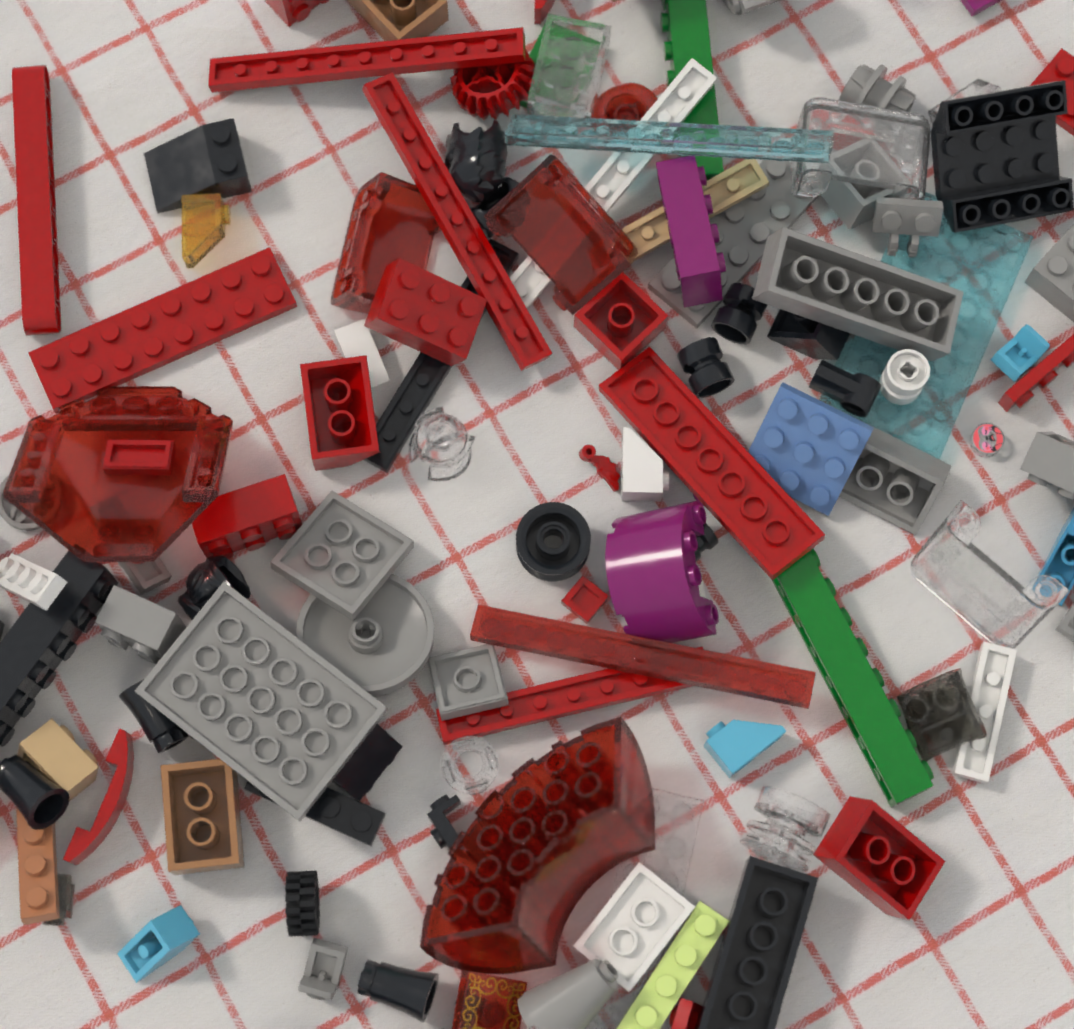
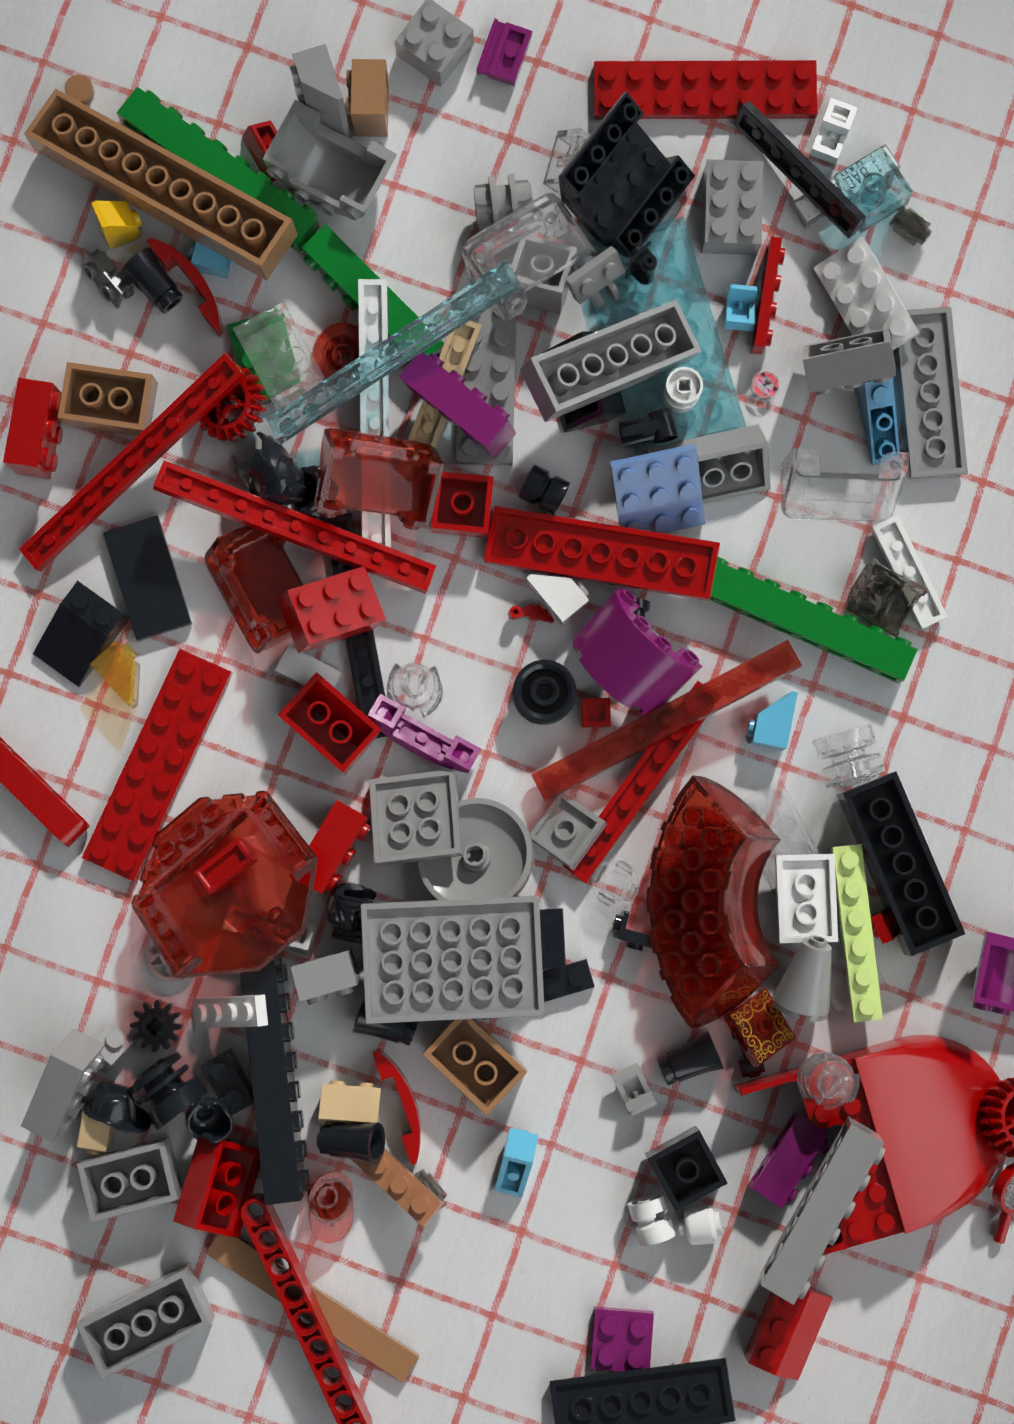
camera: 45 degrees left, 10 degrees up
(295, 170) = (147, 578): none -> black tile
(302, 903) = (587, 1061): black tyre -> none
(407, 490) = (421, 739): none -> magenta slope
(739, 314) = (535, 443): black wheel -> none
(879, 857) = (922, 725): red brick -> none
(956, 238) = (641, 264): none -> black hinge

